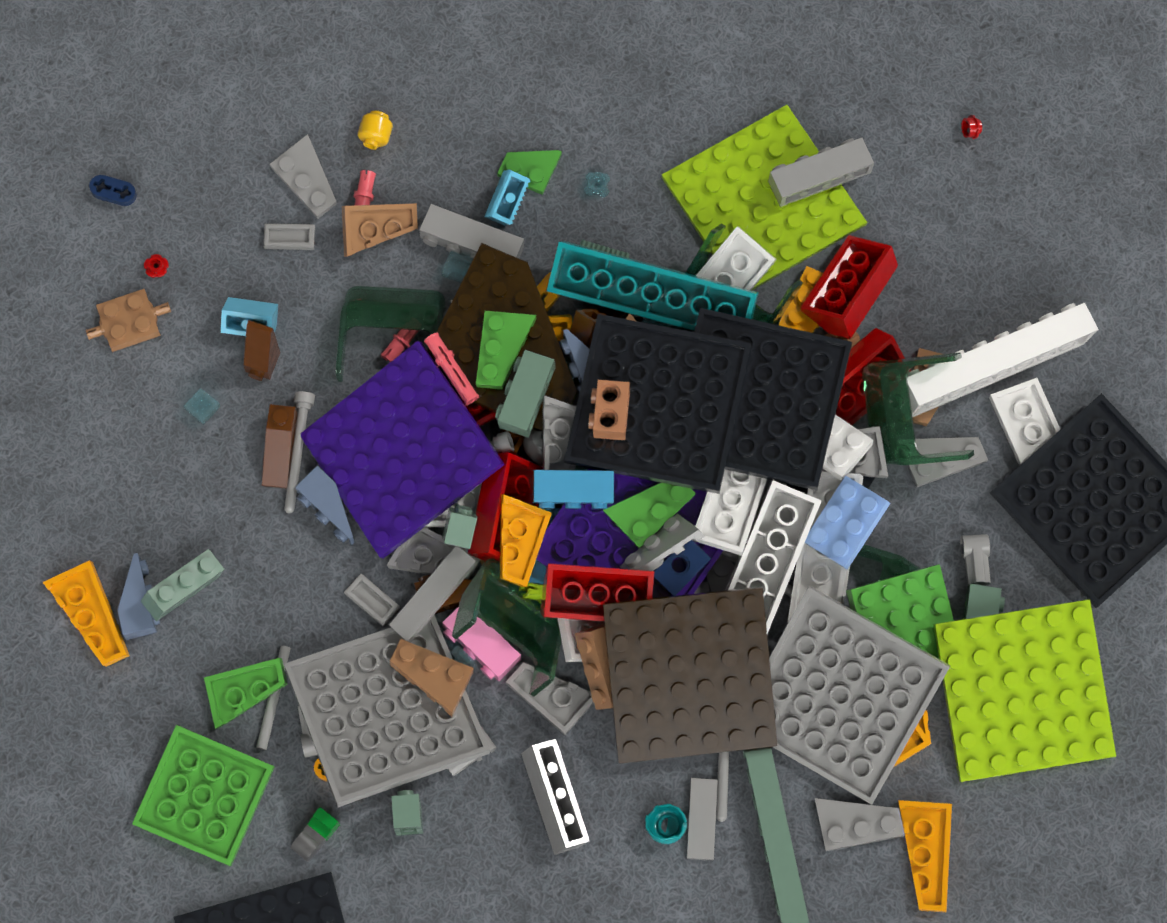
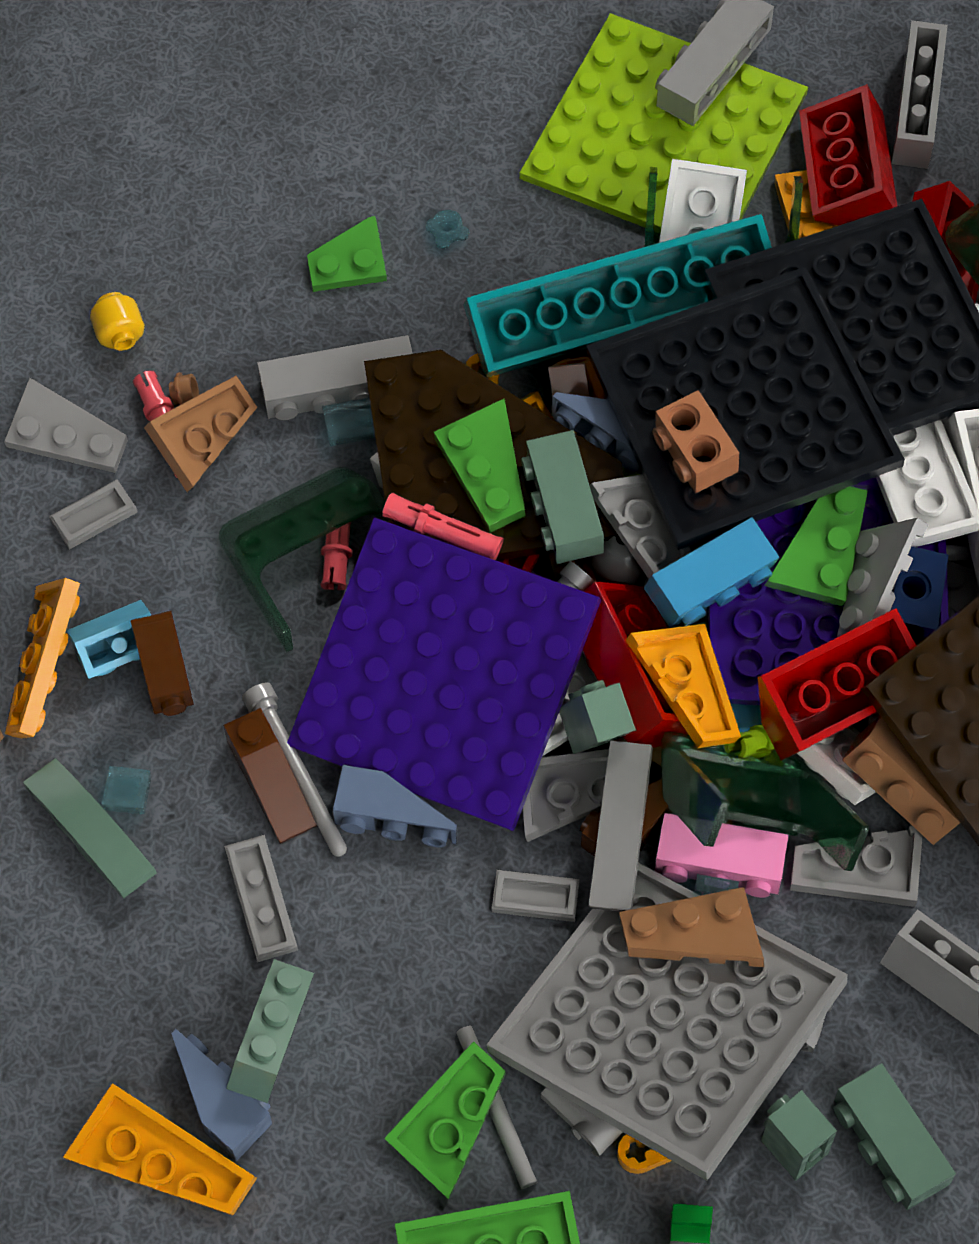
camera: 30 degrees left, 10 degrees down
(168, 415) = (90, 828): none -> sand green slope
(204, 303) = (38, 661): none -> light orange wing
(231, 509) = (261, 898): none -> light grey tile
(382, 191) = (183, 388): none -> medium nougat plate
(458, 847) = (892, 1137): none -> sand green brick
(507, 197) = (350, 300): medium azure brick -> none
(924, 268) = (919, 94): none -> light grey brick

